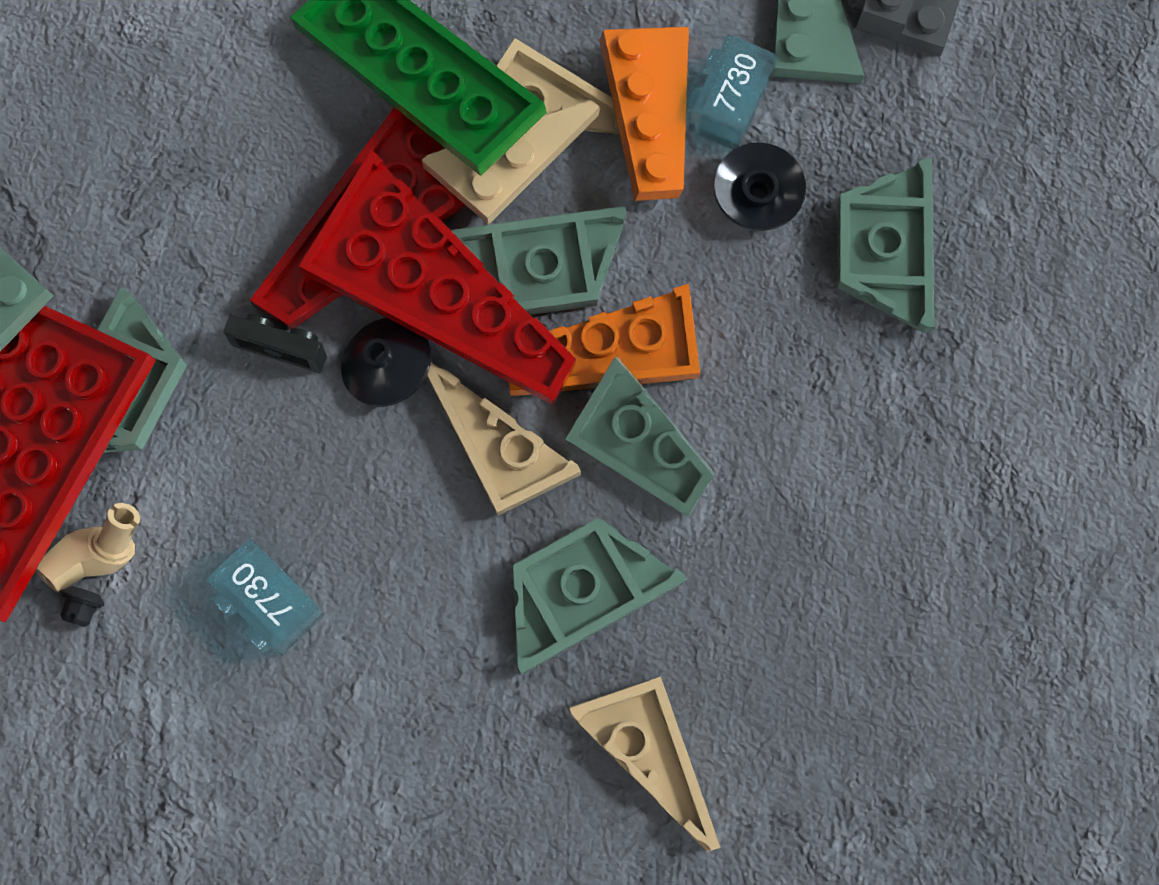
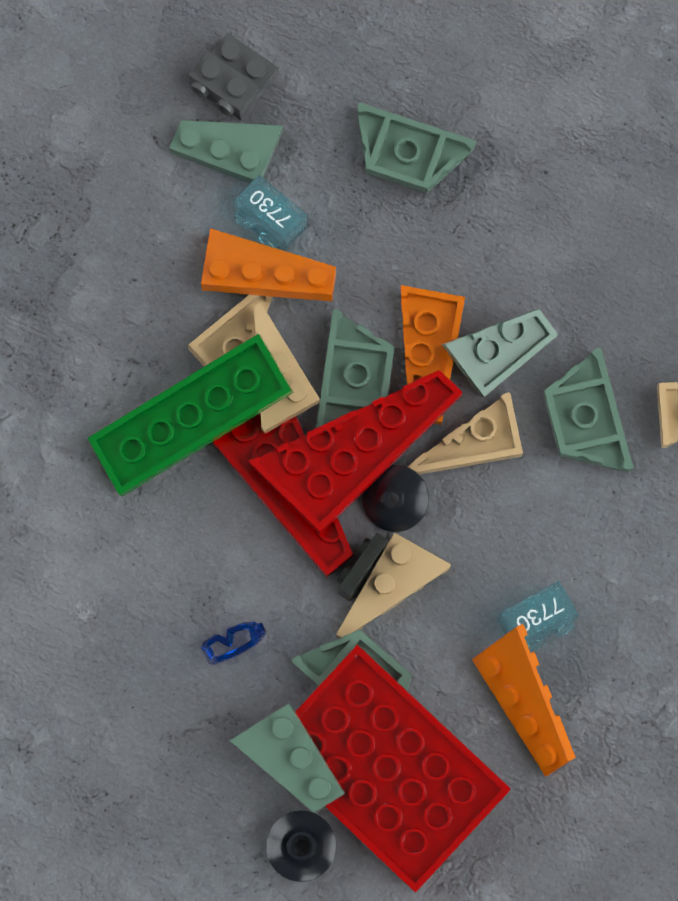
camera: 70 degrees left, 0 degrees up
(79, 605) = (506, 742): black piece -> none
(91, 550) = (474, 721): tan arm -> none
(100, 179) = (256, 632): none -> clear blue helmet
(136, 612) = (516, 684): none -> orange wing
(282, 395) = (398, 574): none -> tan wing
(763, 168) = (348, 204): black dish -> none

